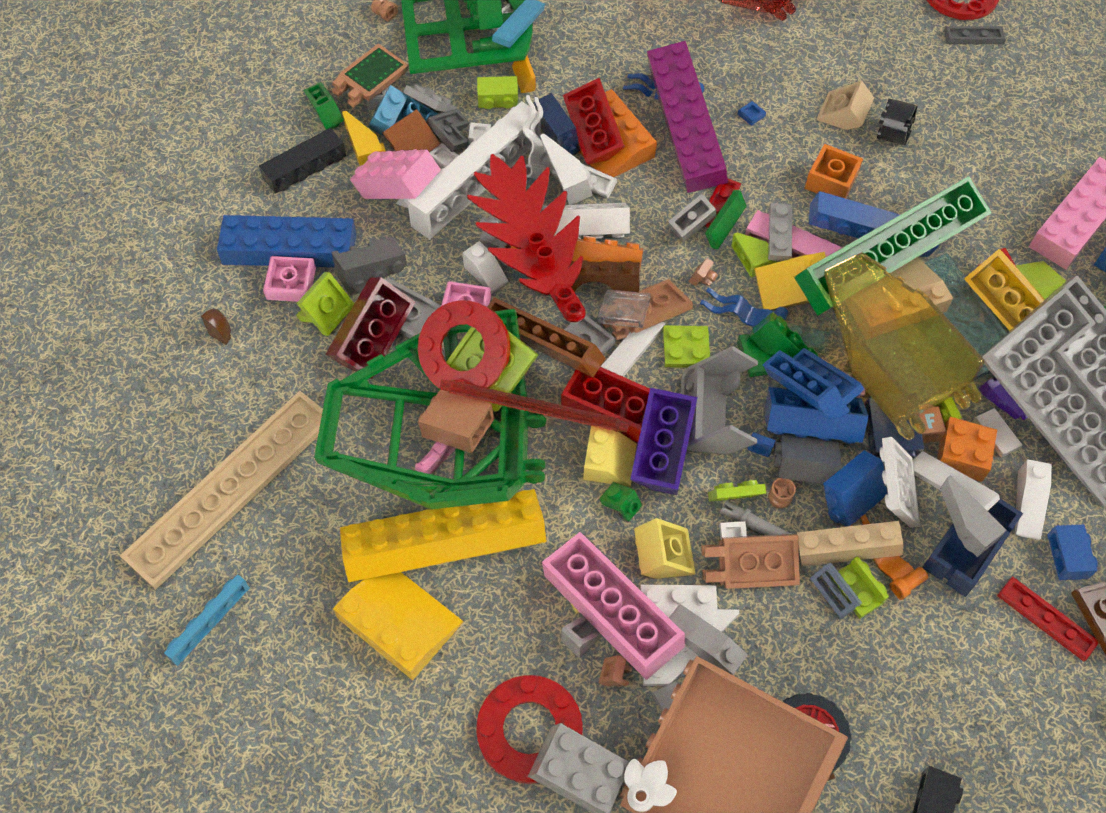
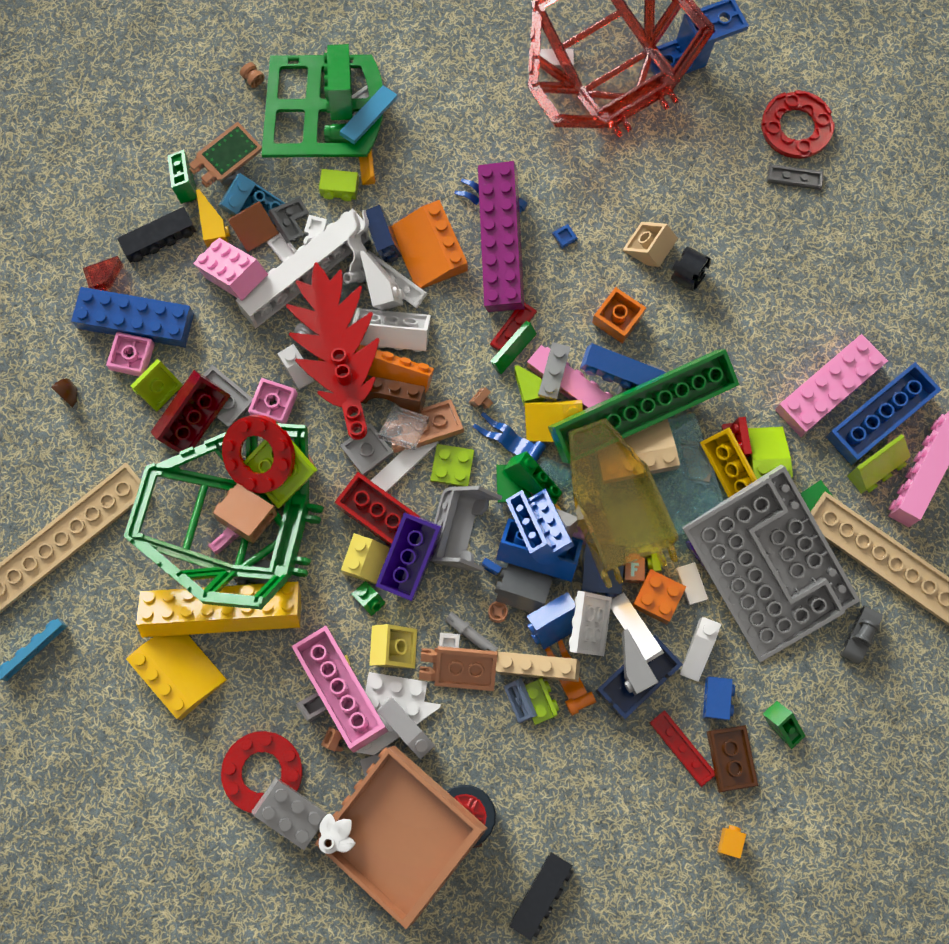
camera: 10 degrees right, 15 degrees up
(248, 201) = (103, 274): none -> clear red slope
(375, 260) = (198, 350): dark grey wedge -> none
(429, 98) = (276, 187): light grey plate -> none
(534, 405) = (308, 512): clear red piece -> none
(554, 341) = (330, 449): dark orange brick -> none
(594, 122) = (415, 234): red slope -> none
(692, 218) = (481, 345): light grey brick -> none
(744, 490) = (459, 609): lime plate -> none

